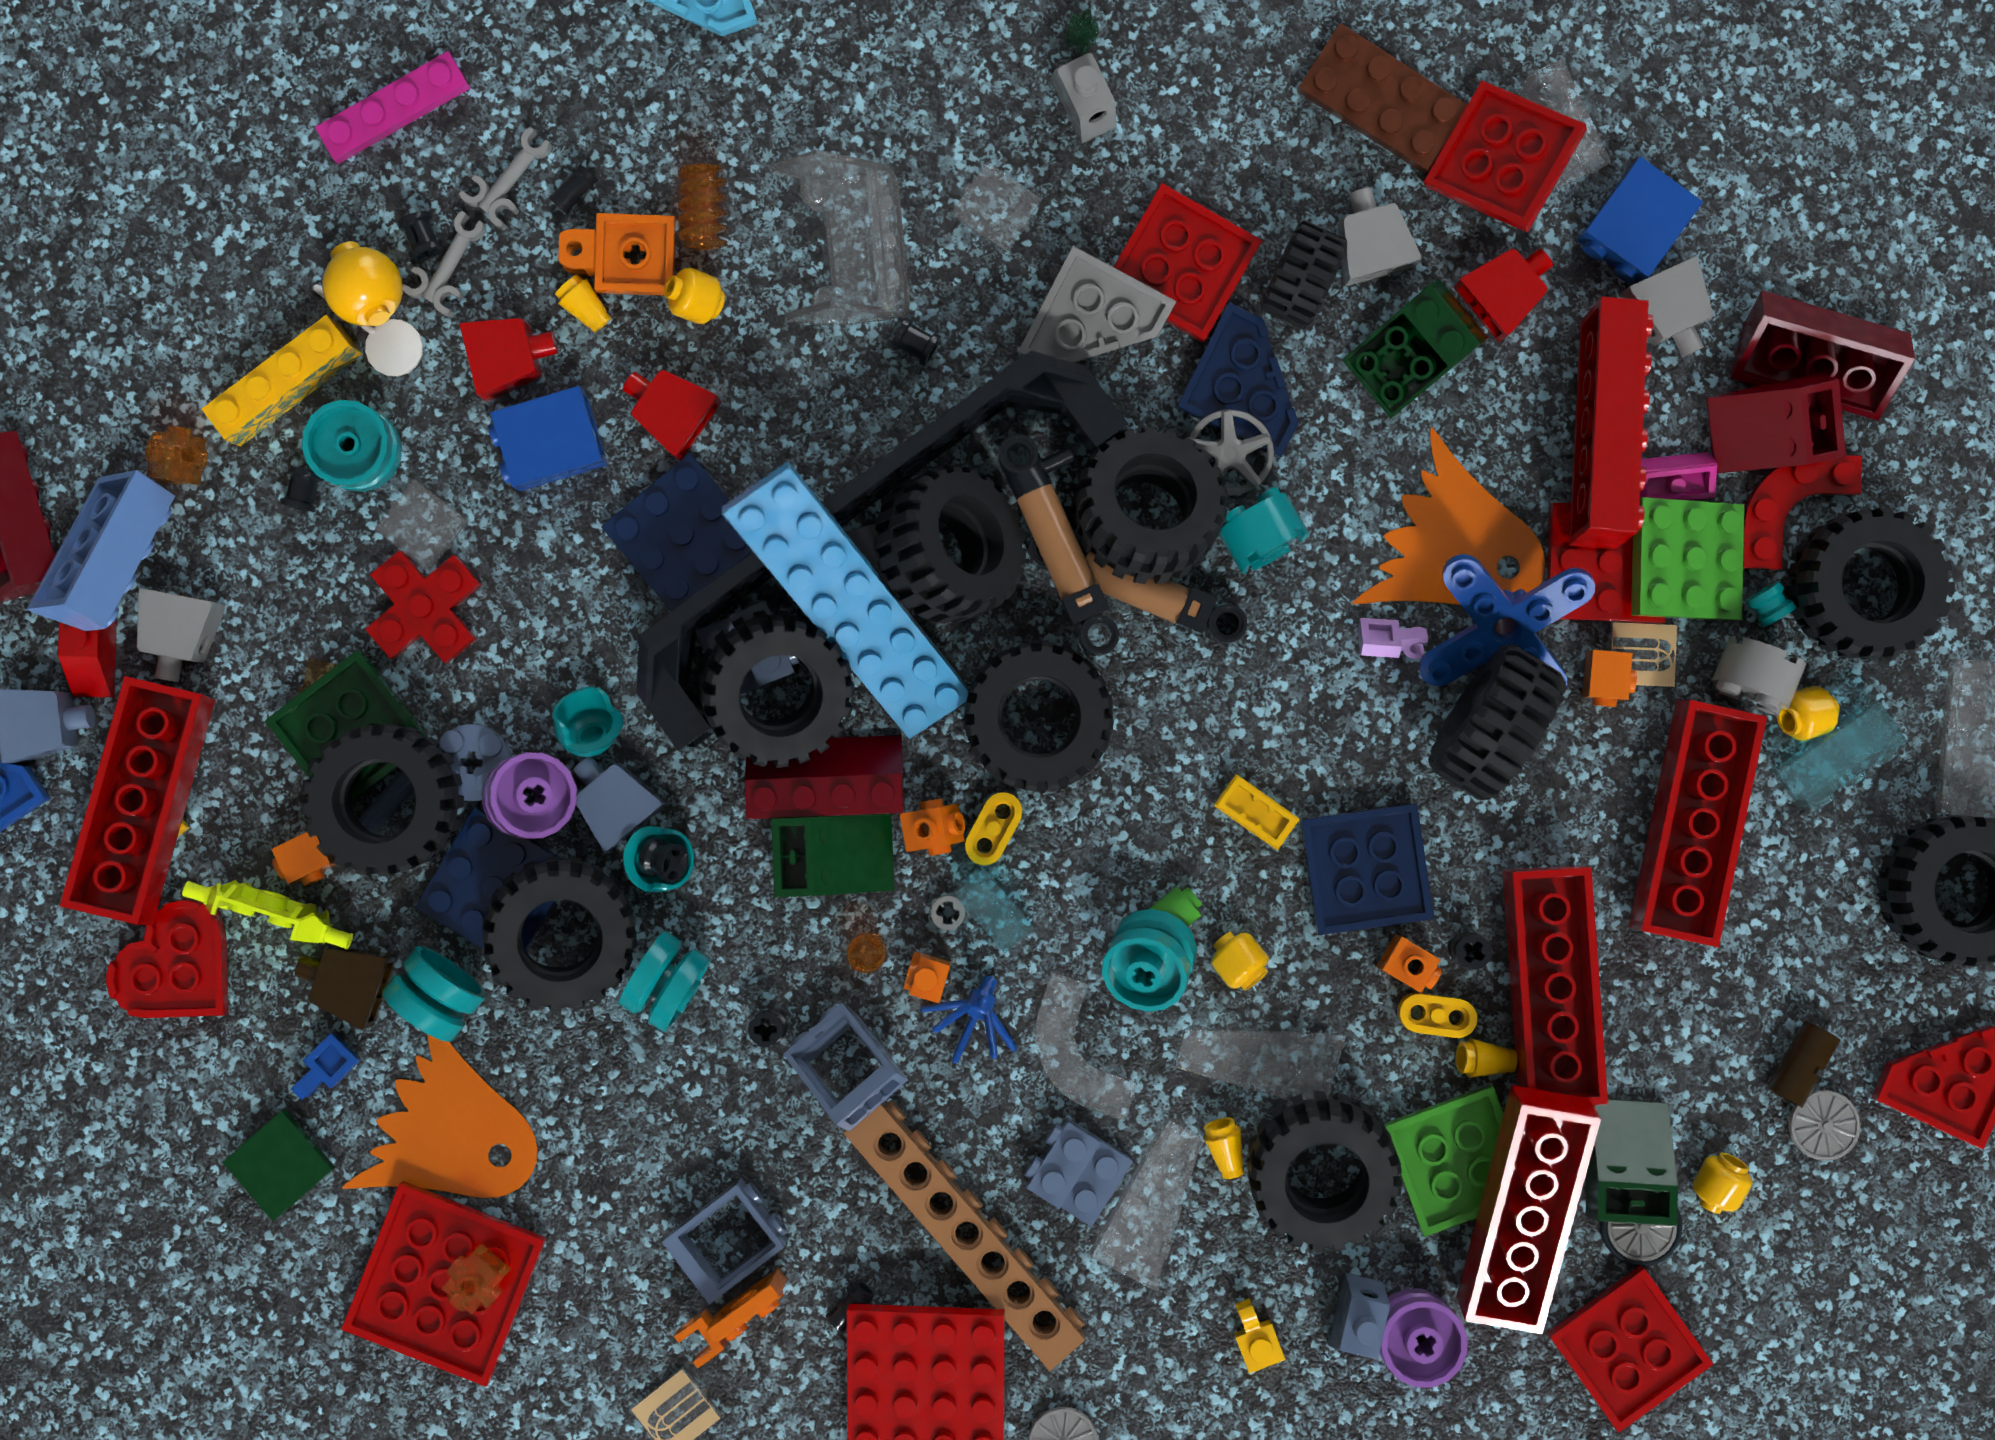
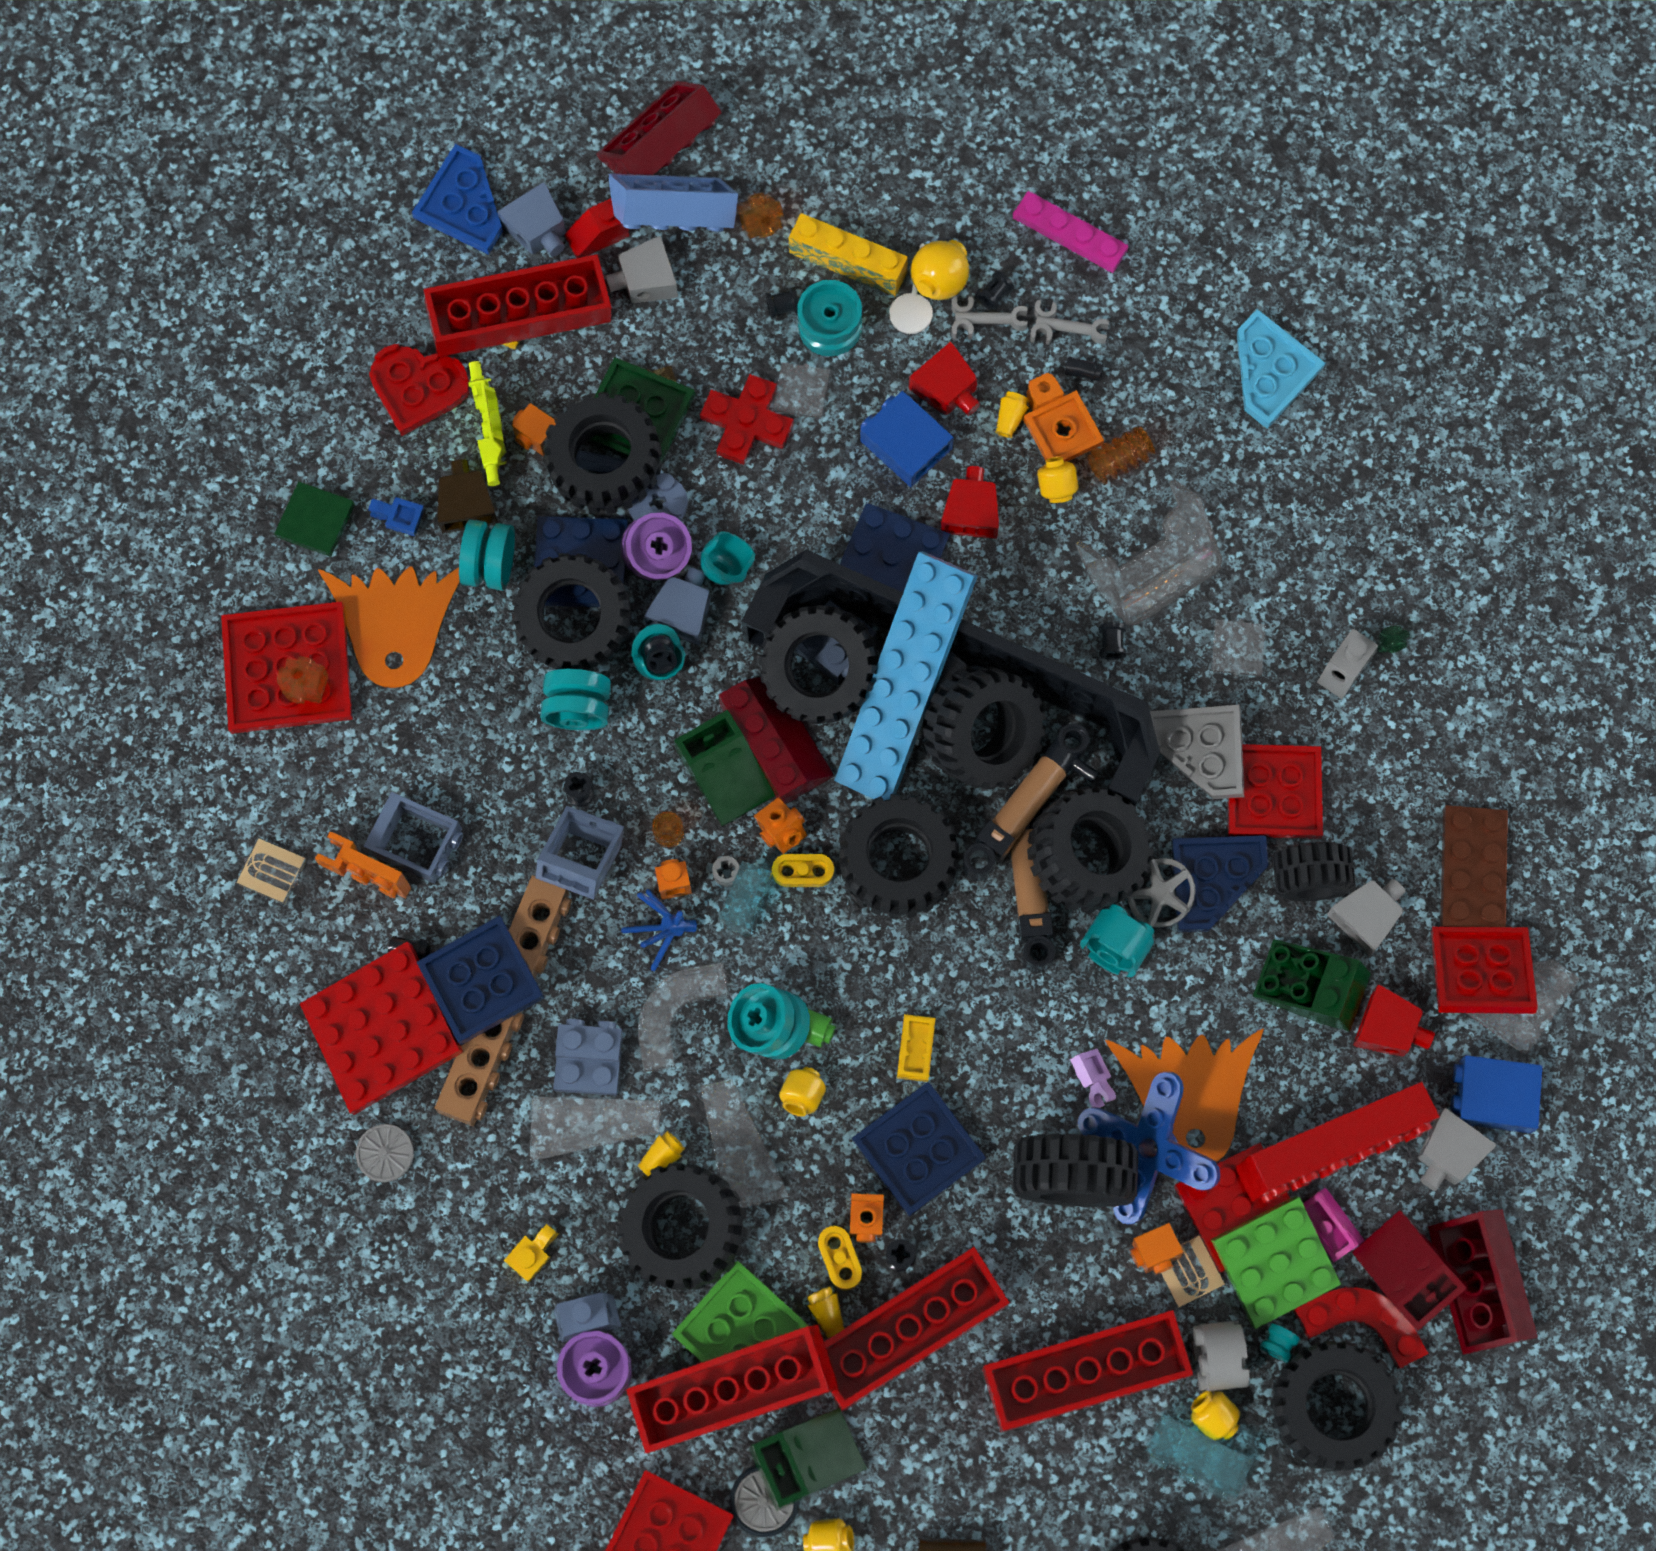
camera: 60 degrees right, 15 degrees down
(936, 1253) = (480, 980): none -> dark blue plate

